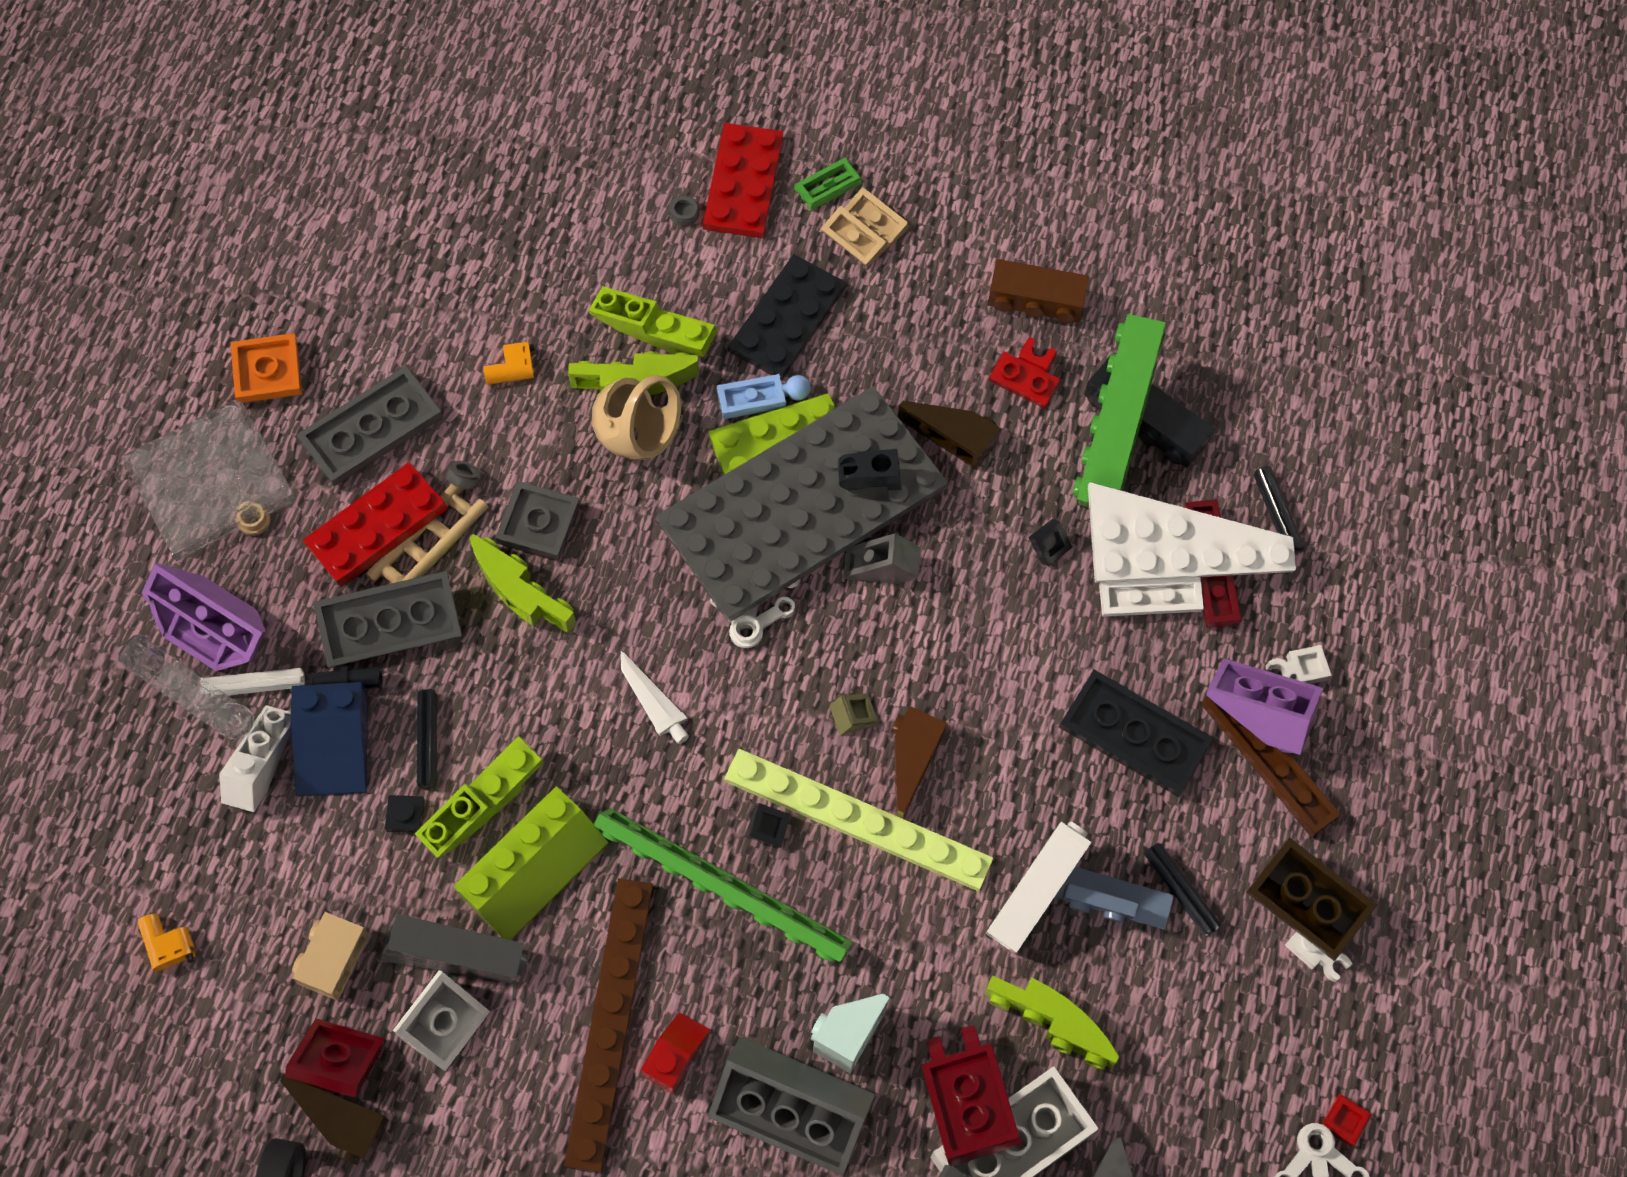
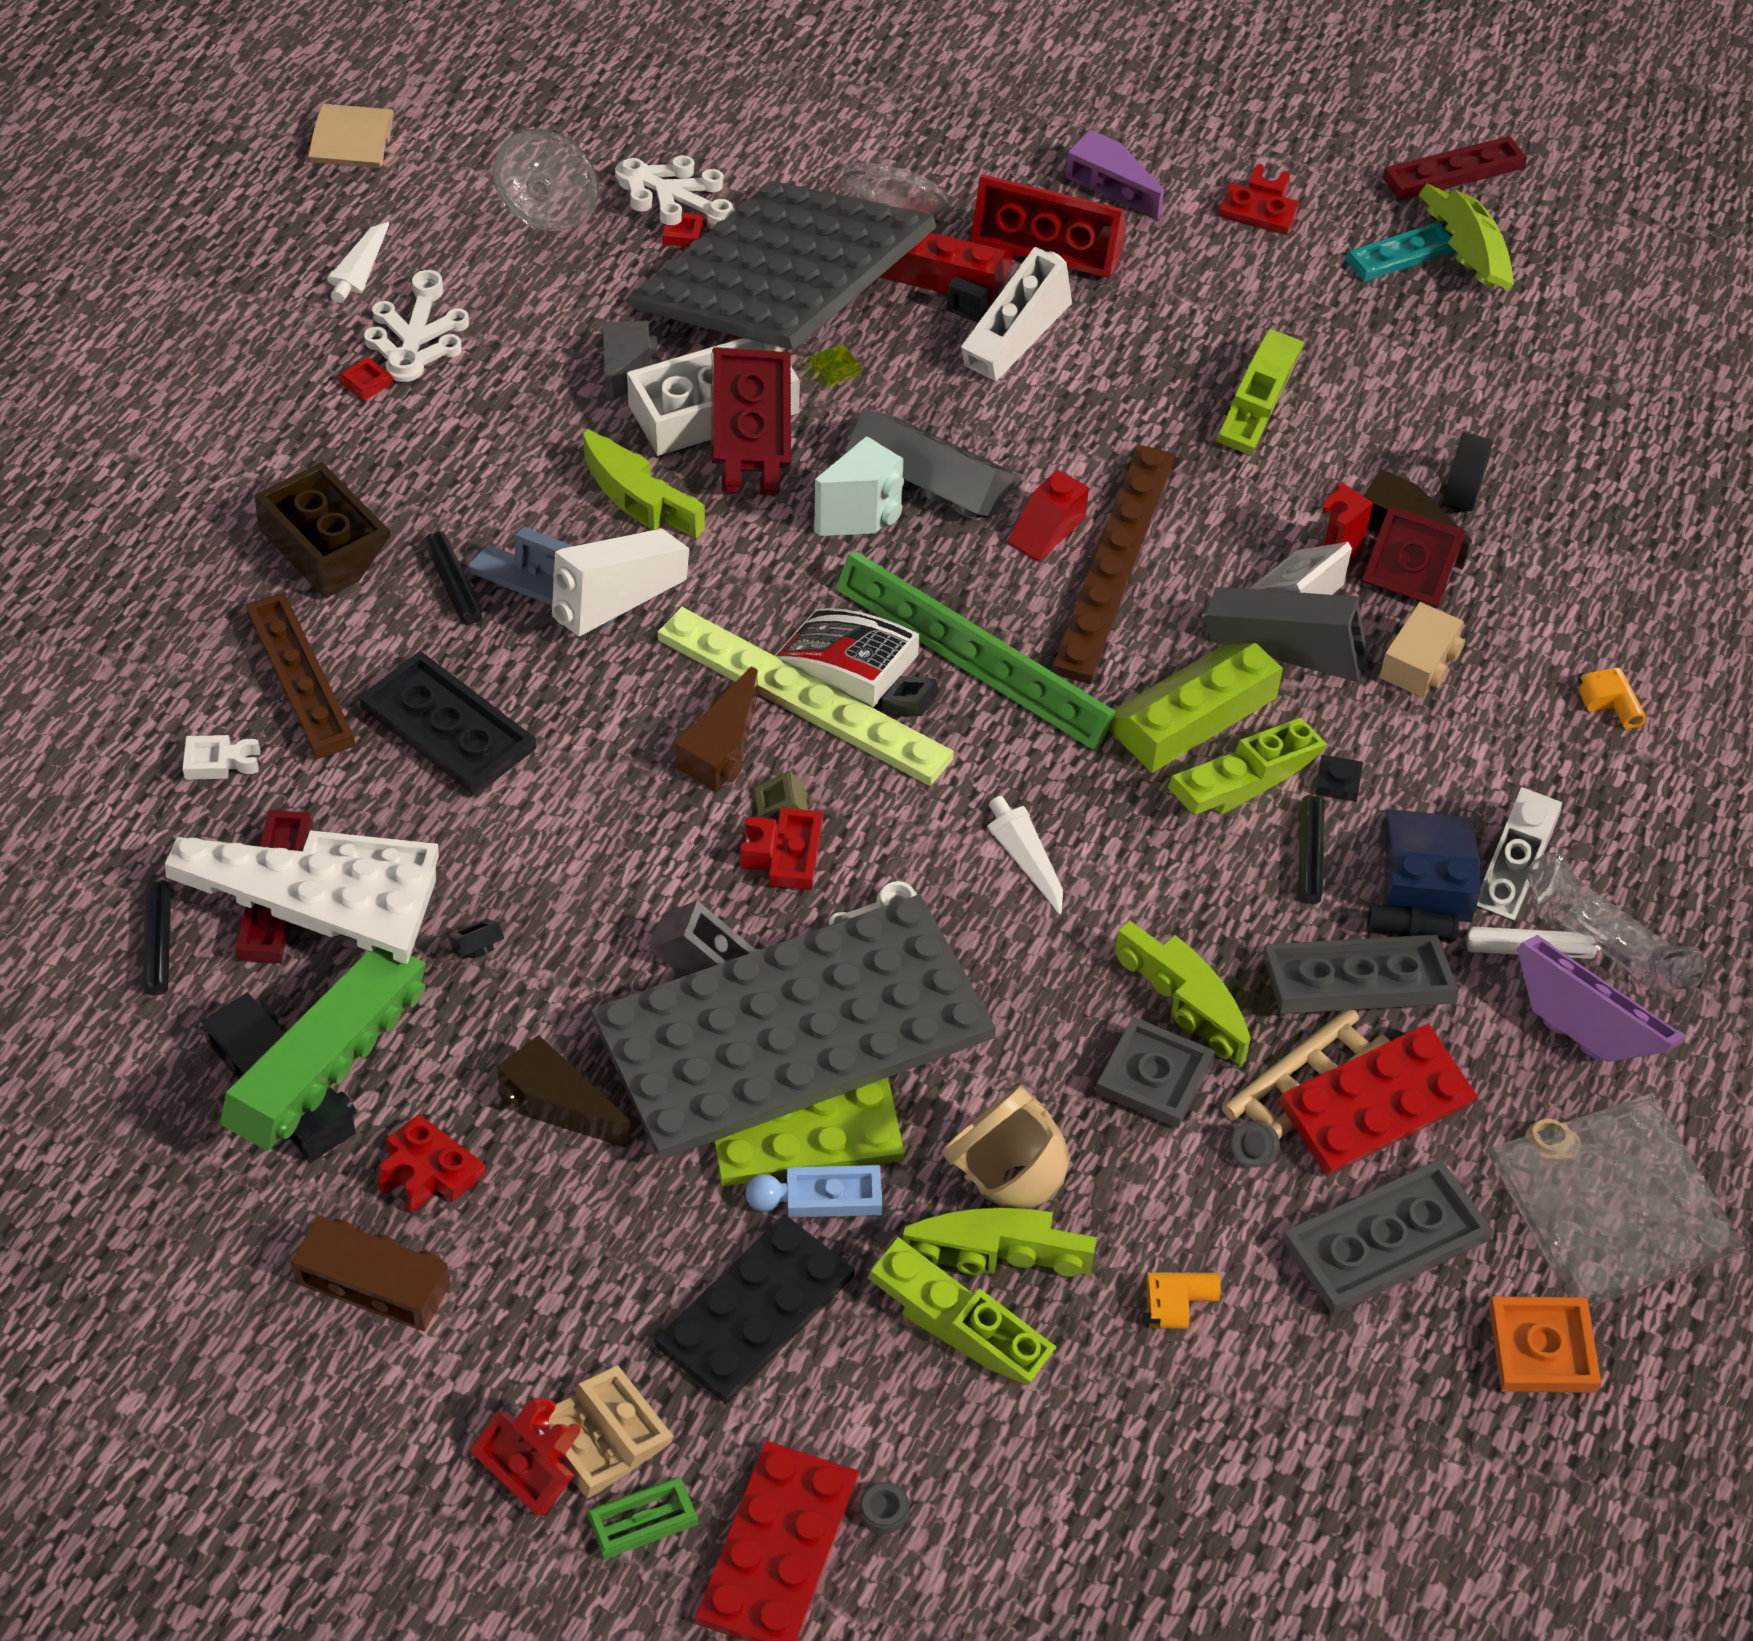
camera: 170 degrees left, 15 degrees down
(398, 1064) = (1347, 519): none -> red hinge
(830, 860) = (852, 651): none -> slope
(839, 662) = (784, 848): none -> red plate
(869, 470) = (697, 1009): black leg -> none
(904, 198) = (526, 1453): none -> red plate
(1267, 704) = (283, 702): medium lavender slope -> none

